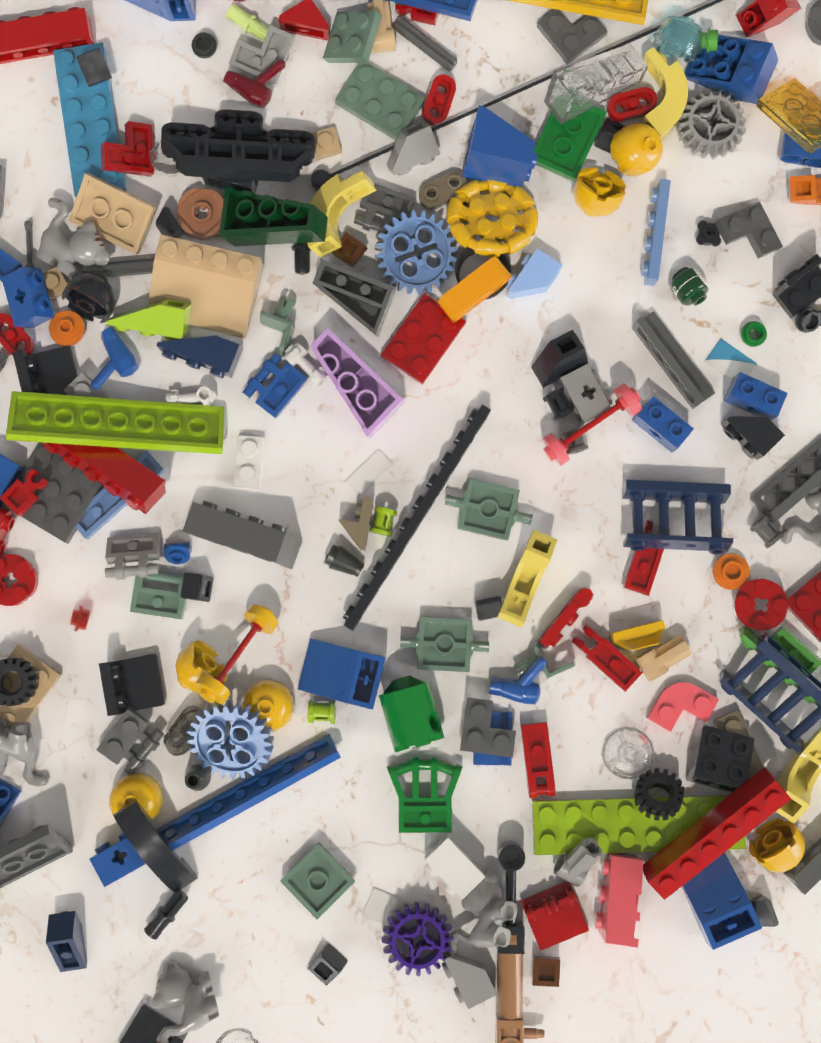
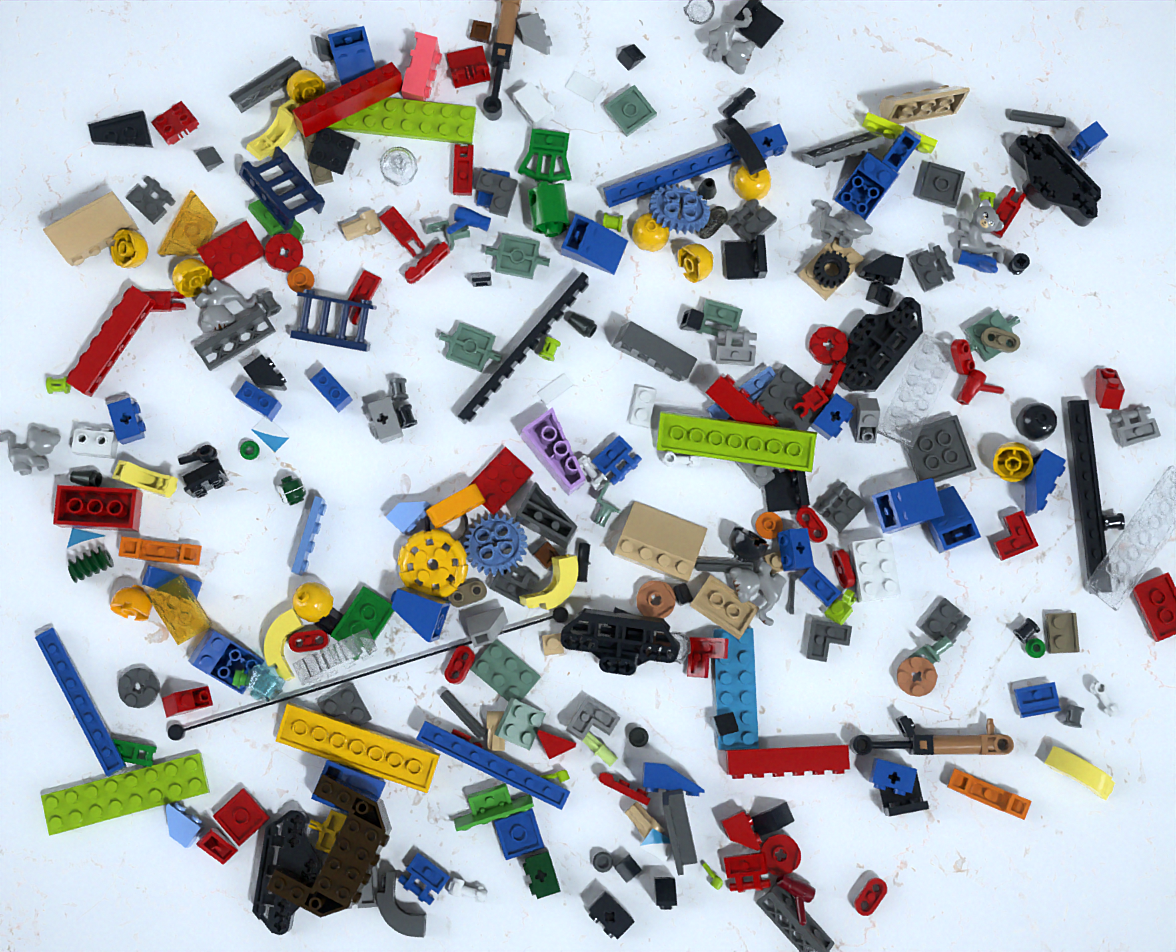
camera: 175 degrees left, 5 degrees down
(66, 941) = (810, 95): dark blue slope -> none
(79, 618) = (779, 310): clear red plate -> none
(120, 358) = (730, 495): blue piece -> none
(162, 318) = (700, 521): lime slope -> none
(177, 552) = (703, 348): blue plate -> none
(208, 352) = (662, 490): dark blue slope -> none
(213, 688) = (647, 290): yellow axle -> none
(254, 89) = (602, 692): dark red piece -> none
(265, 220) = (609, 582): dark green wedge -> none
(359, 530) = (568, 345): dark tan slope -> none
(412, 960) = (561, 55): dark purple gear -> none
(488, 904) = (514, 77): light grey animal -> none
(527, 578) = (450, 295): light yellow arch -> none
(559, 358) = (400, 447): black slope -> none
(575, 865) = (447, 95): light grey piece -> none
(598, 192) = (347, 571): yellow cylinder -> none
(627, 400) = (414, 380): coral axle -> none
(638, 636) = (376, 242): yellow slope -> none
(663, 781) = (372, 138): black tyre -> none
(673, 360) = (314, 438): dark grey fence -> none
(679, 697) = (356, 198): coral plate -> none
(704, 239) = (273, 531): black plate -> none
(731, 126) = (234, 608): light grey gear -> none
(753, 224) = (234, 533): dark grey plate -> none

